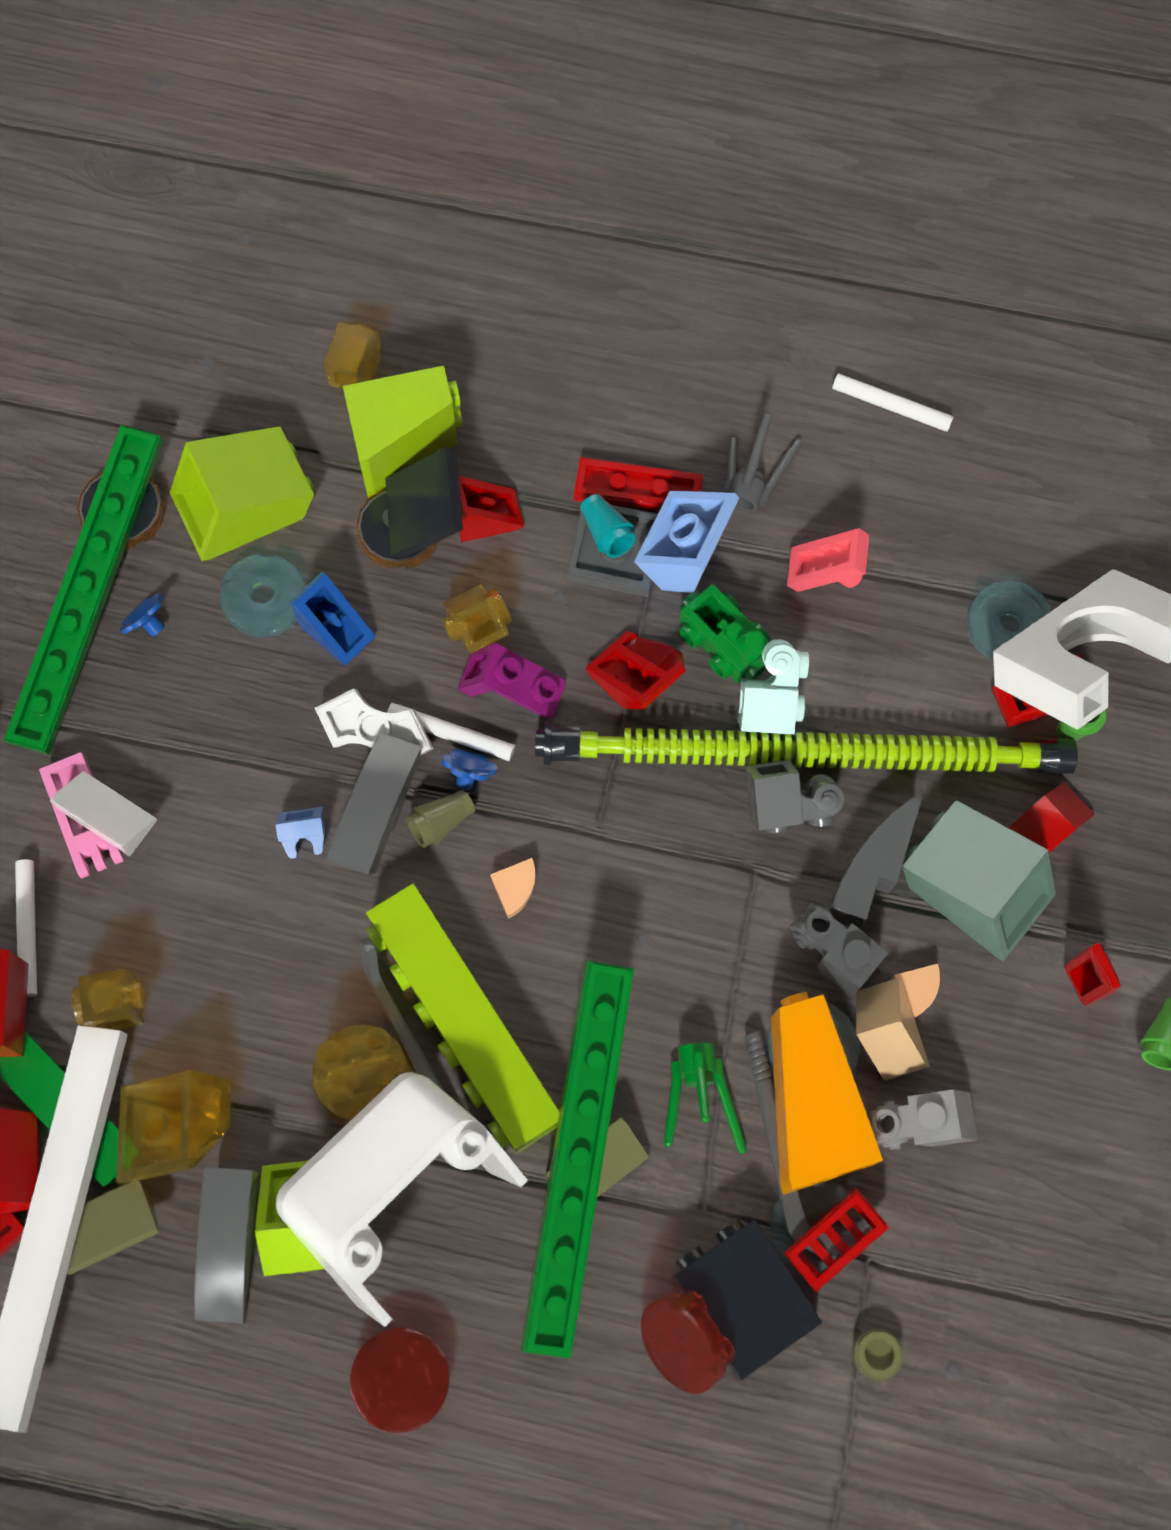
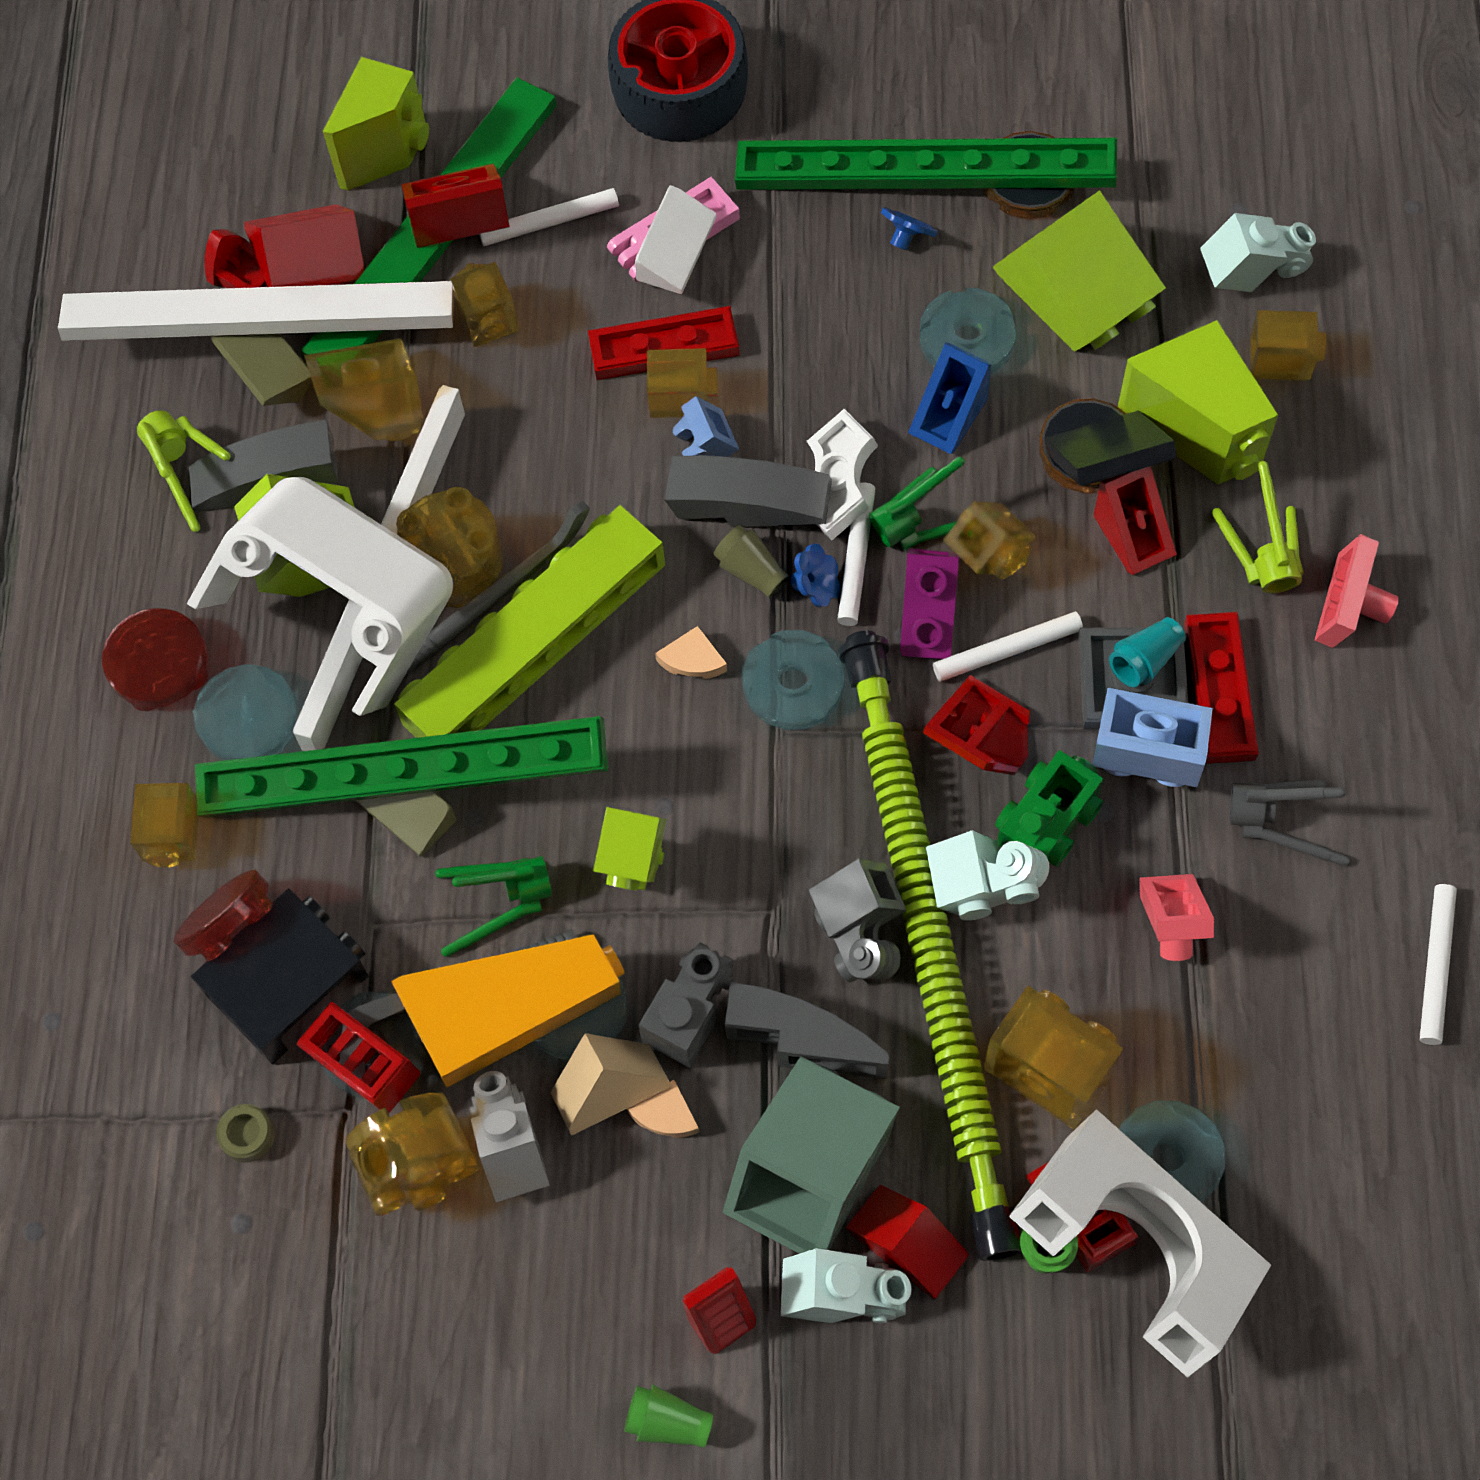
camera: 85 degrees right, 5 degrees down
(170, 1337) = (166, 442): none -> lime plant
(194, 850) = (624, 347): none -> red tile
(246, 841) = (676, 378): none -> clear yellow brick
(262, 354) = (1252, 248): none -> light aqua brick
(331, 1125) = (341, 658): none -> white tile
(431, 691) = (898, 517): none -> green plant
(476, 1298) = (245, 713): none -> clear light blue tile
(546, 417) = (1278, 562): none -> lime plant
(549, 833) = (793, 707): none -> clear light blue tile
(566, 634) = (1007, 646): none -> white bar
(578, 1390) = (164, 823): none -> clear yellow brick
(585, 372) = (1352, 594): none -> coral tile
(705, 962) = (630, 848): none -> lime brick
(937, 675) = (1053, 1056): none -> clear yellow brick
(938, 1202) = (410, 1154): none -> clear yellow brick
(1089, 880) = (840, 1286): none -> light aqua brick

